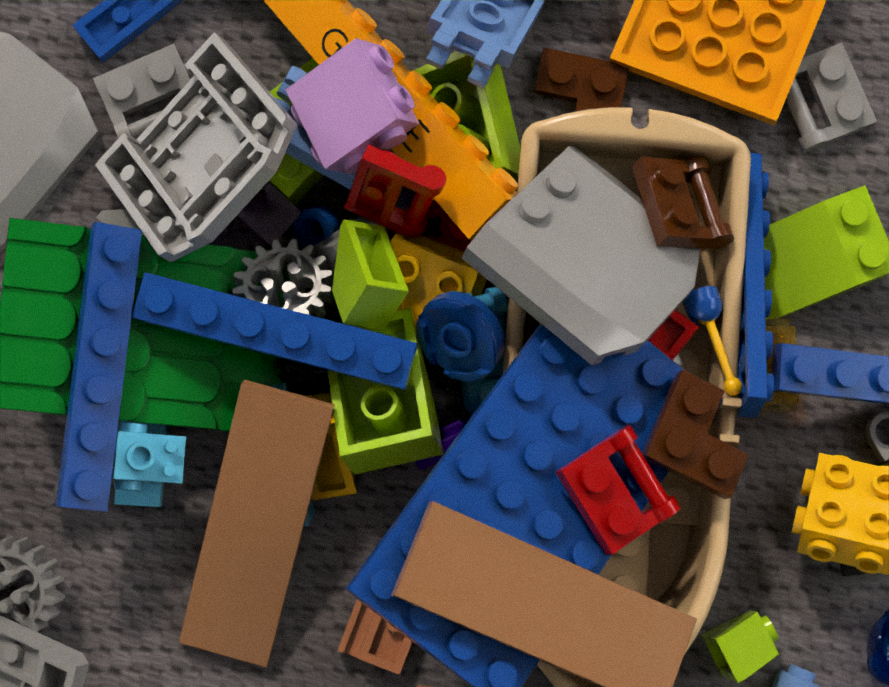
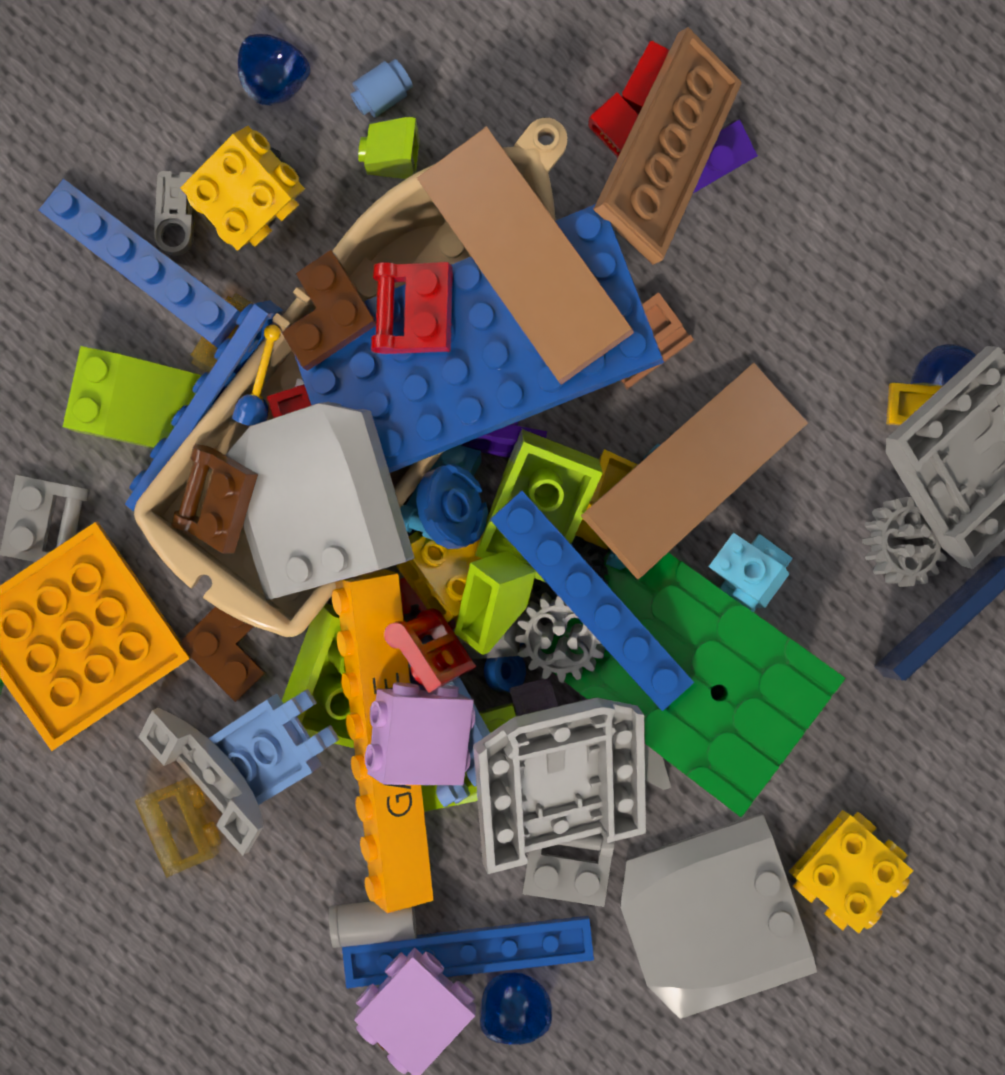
camera: 145 degrees left, 5 degrees up
(98, 367) = (742, 658): blue plate -> none

